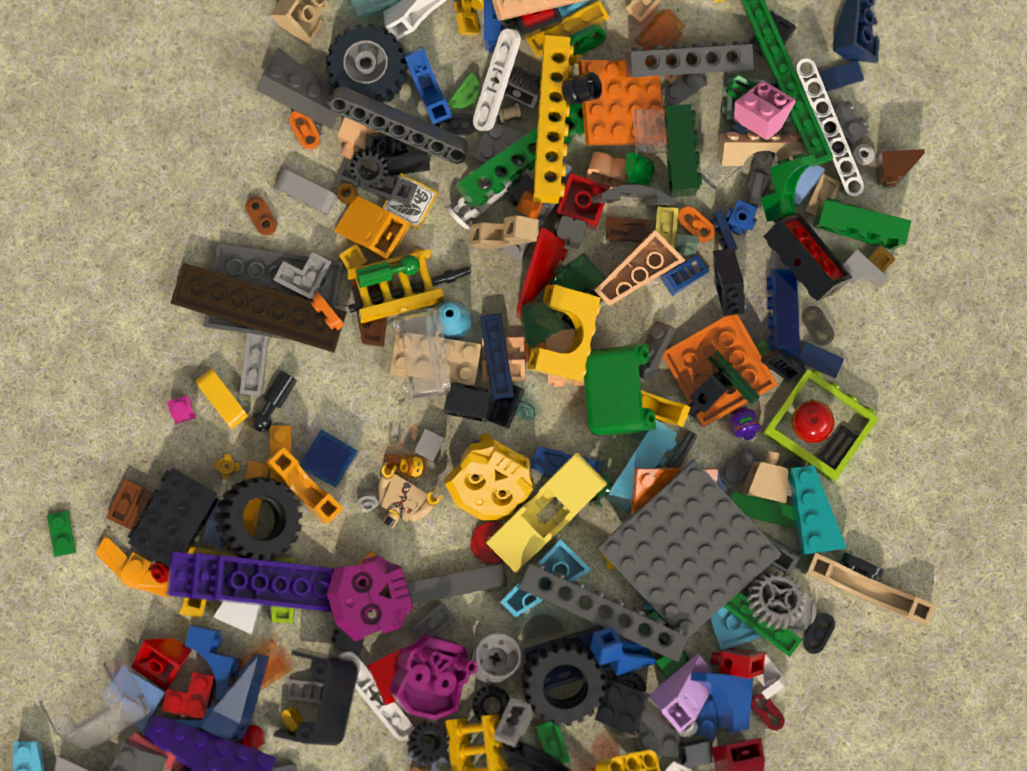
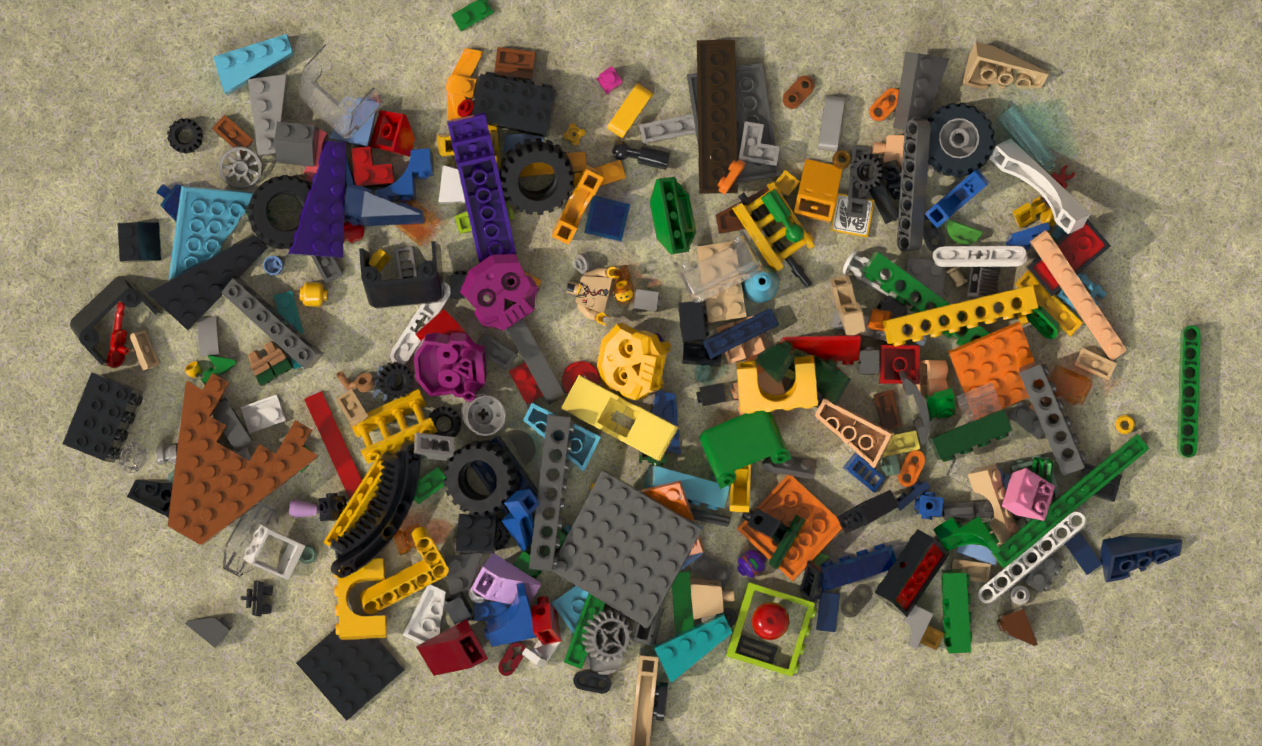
camera: 70 degrees right, 5 degrees up
(348, 389) = (672, 215): none -> green wedge
(476, 602) = (526, 383): none -> red plate
(552, 407) = (711, 394): none -> black slope
(581, 88) = (994, 332): black wheel -> none

